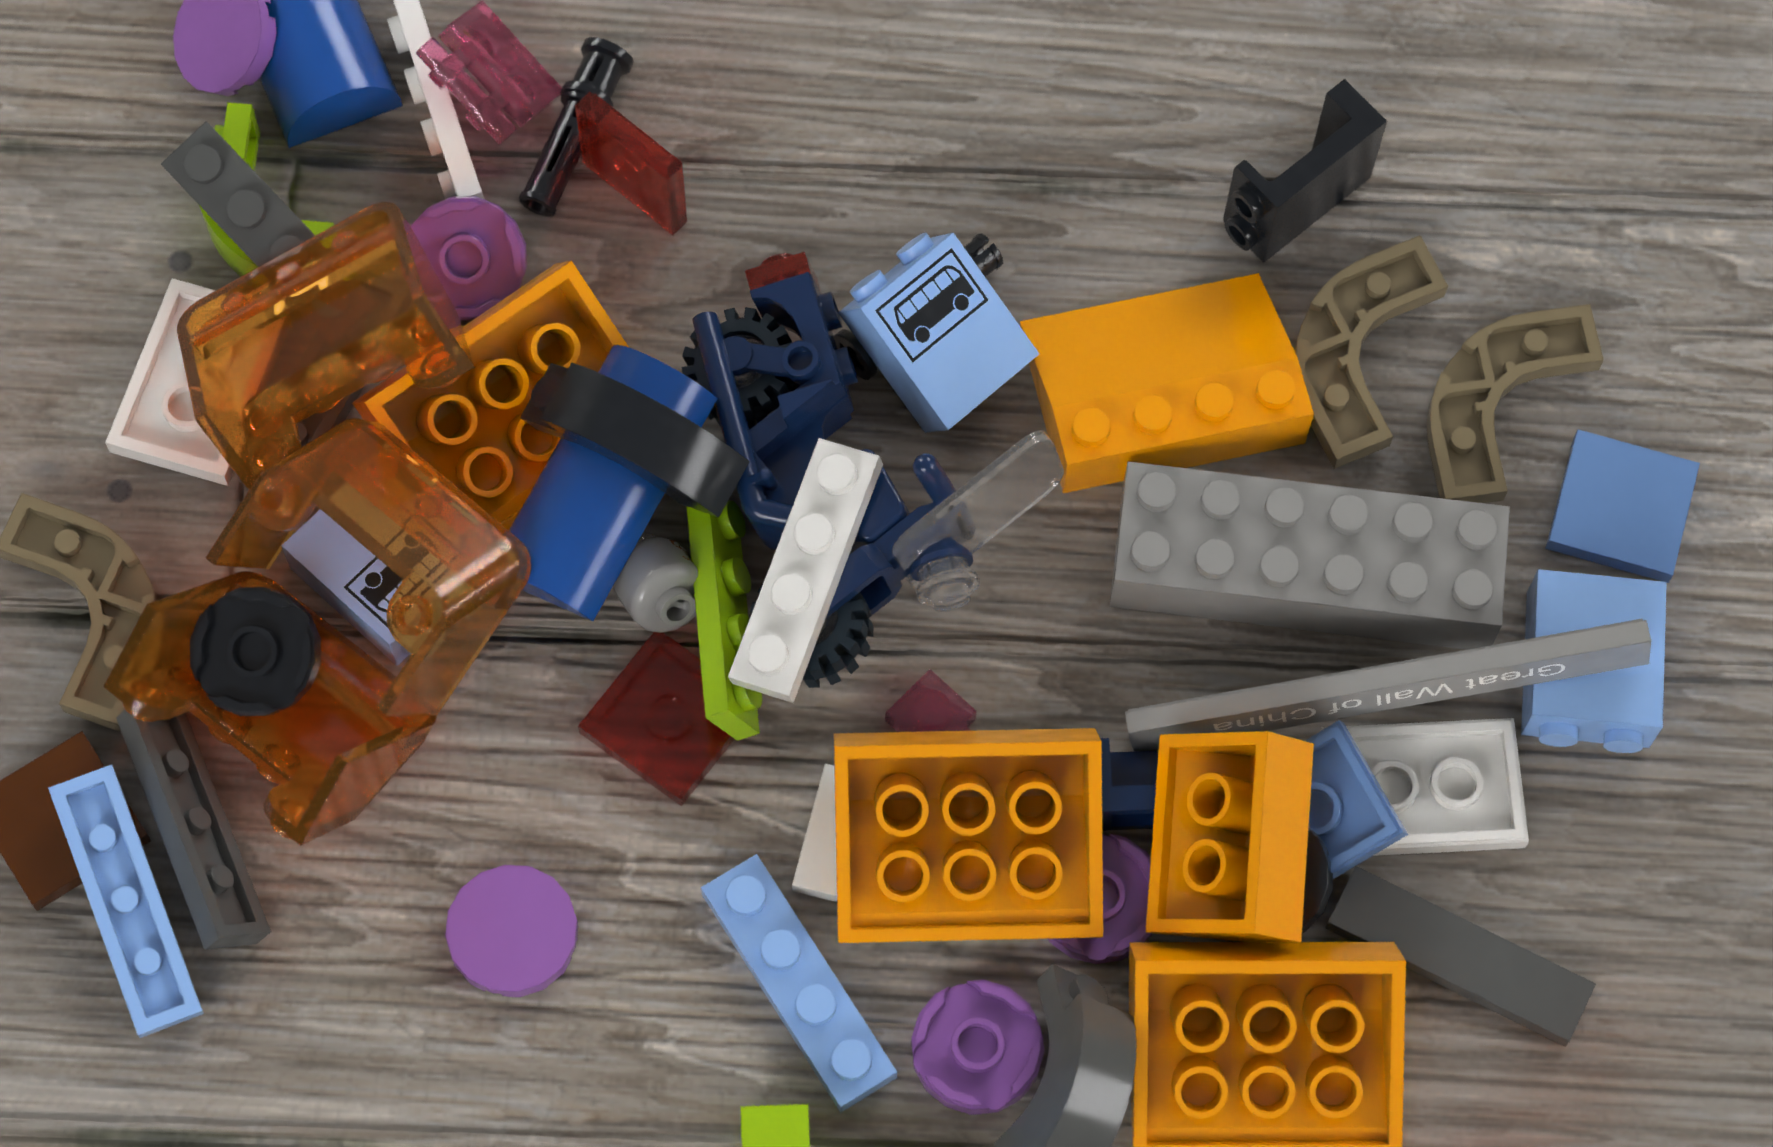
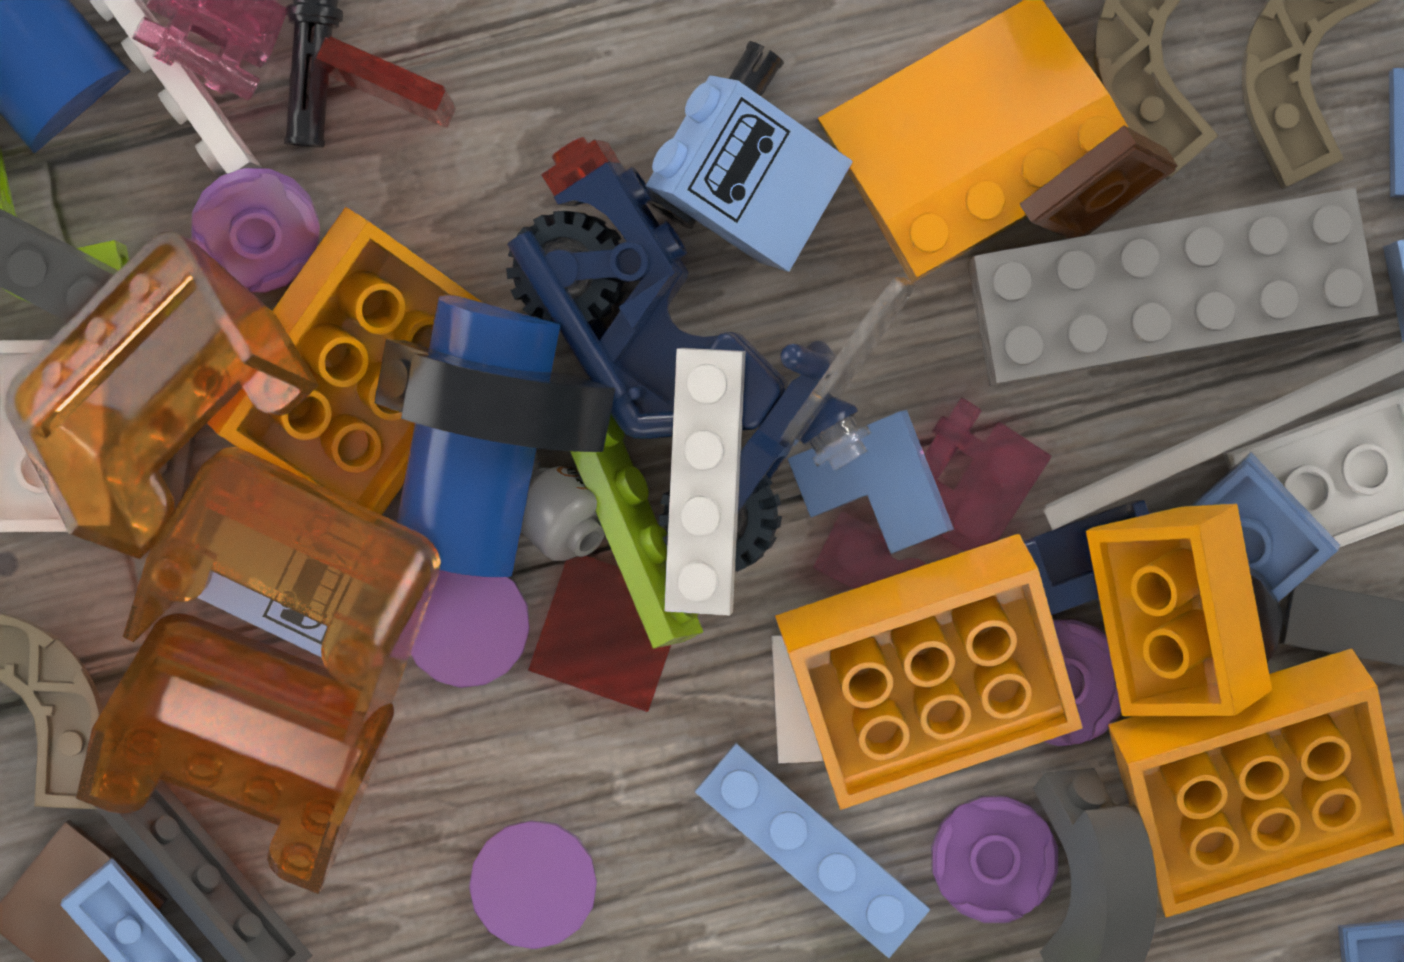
camera: 15 degrees left, 20 degrees up
(255, 651) = (203, 708): black tile -> none
(536, 669) = (471, 629): none -> medium lavender tile
(983, 637) = (892, 476): none -> medium blue tile
(1079, 695) = (993, 482): none -> clear pink plate
(1266, 427) = (1099, 184): none -> reddish brown tile

